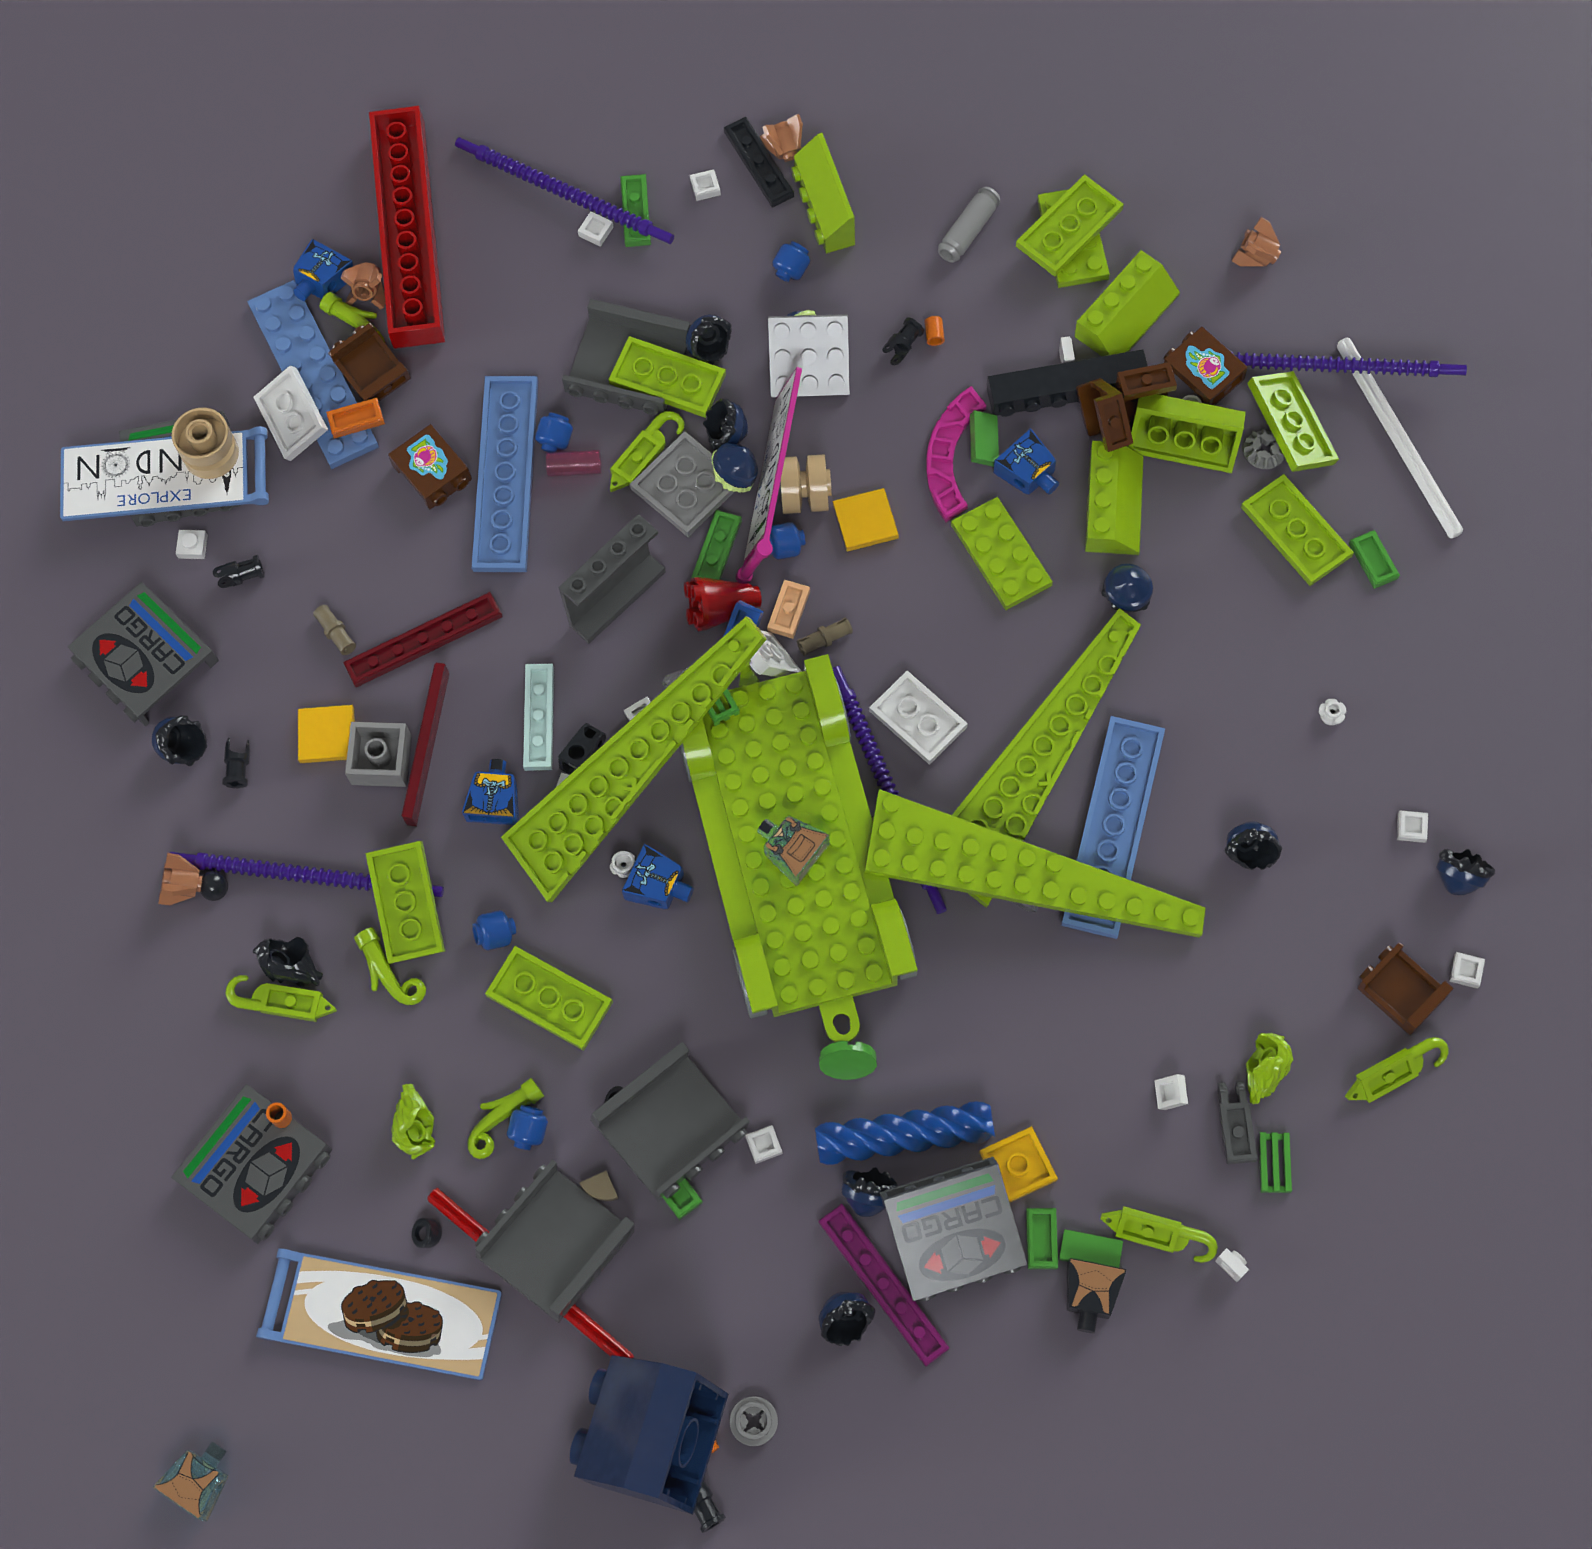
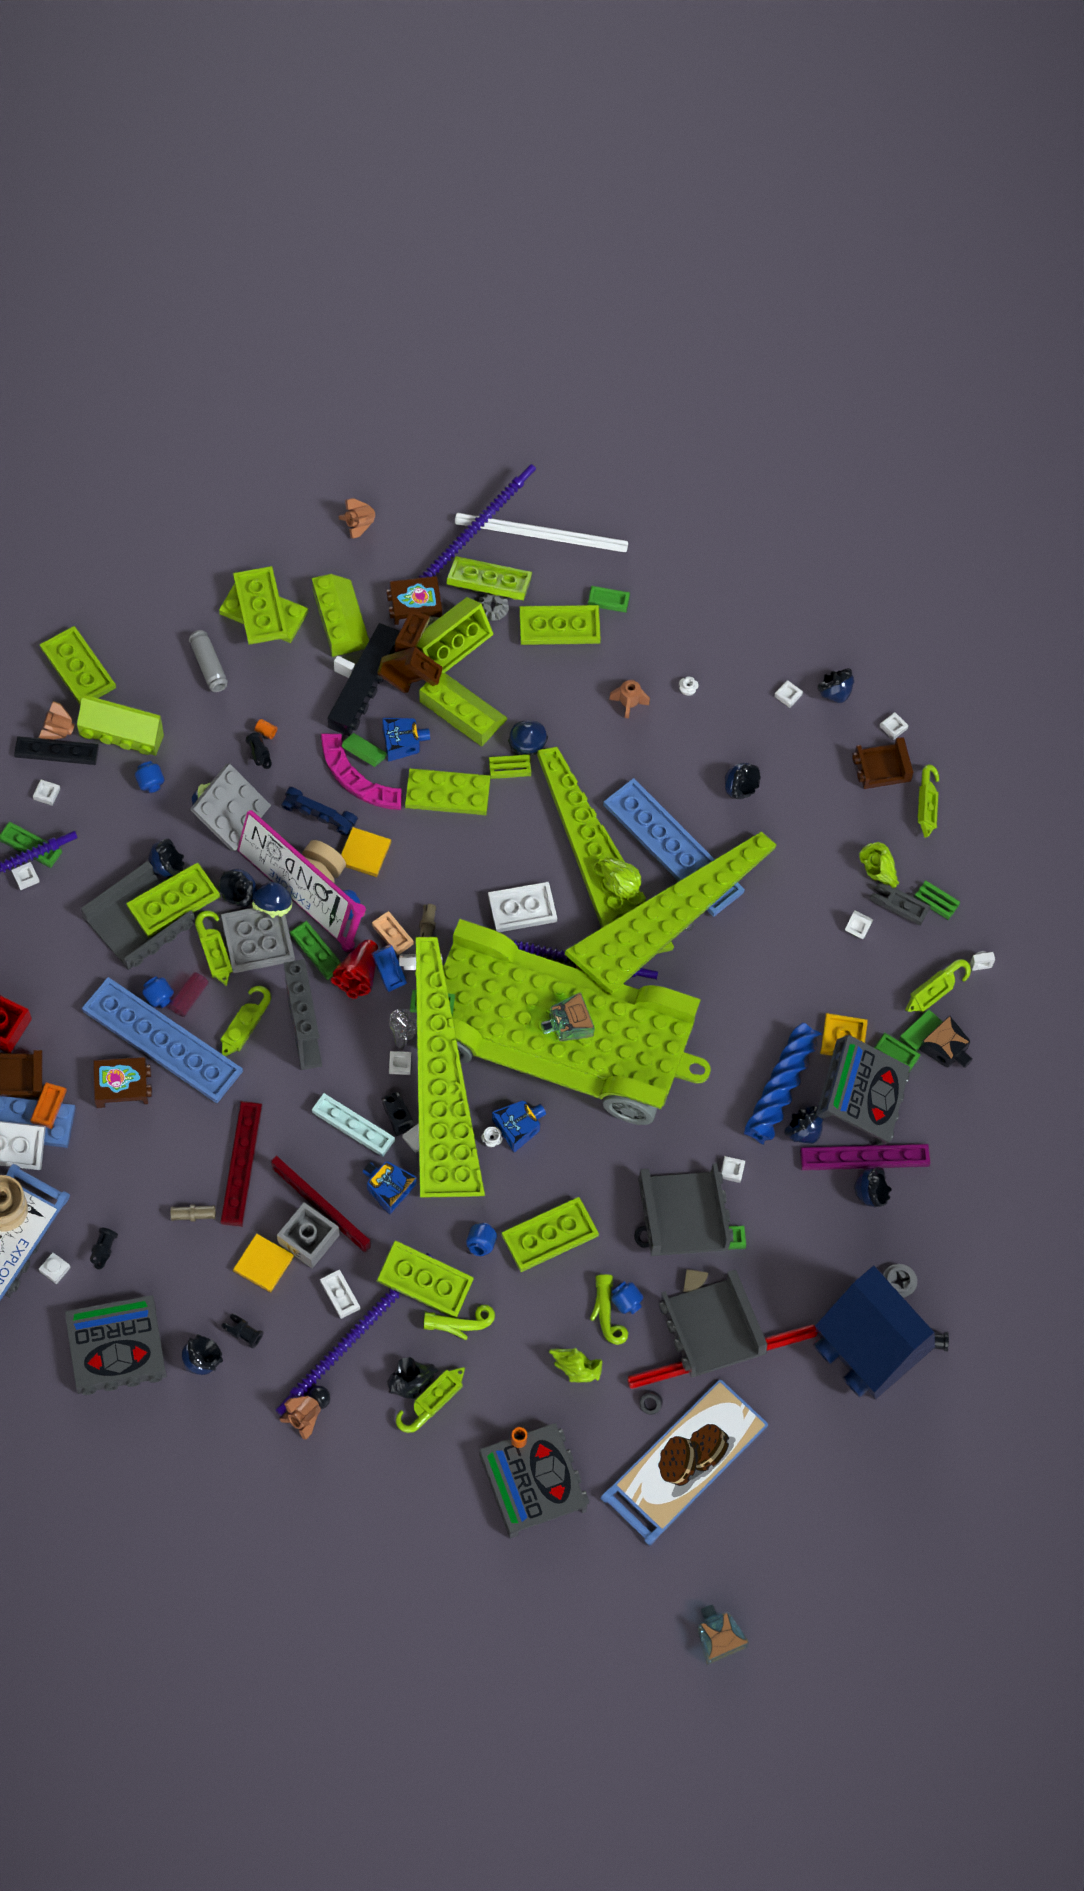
camera: 65 degrees left, 5 degrees down
(338, 830) = (340, 1294): none -> white plate
(574, 537) = (244, 1022): none -> lime plate
(847, 1061) = (717, 1084): bright green tile -> none
(867, 114) = (77, 665): none -> lime plate
(870, 412) = (325, 814): none -> dark blue plate
(1023, 791) = (620, 877): none -> lime hair
(1074, 602) = (508, 763): none -> lime tile
(1266, 658) = (630, 695): none -> nougat brick

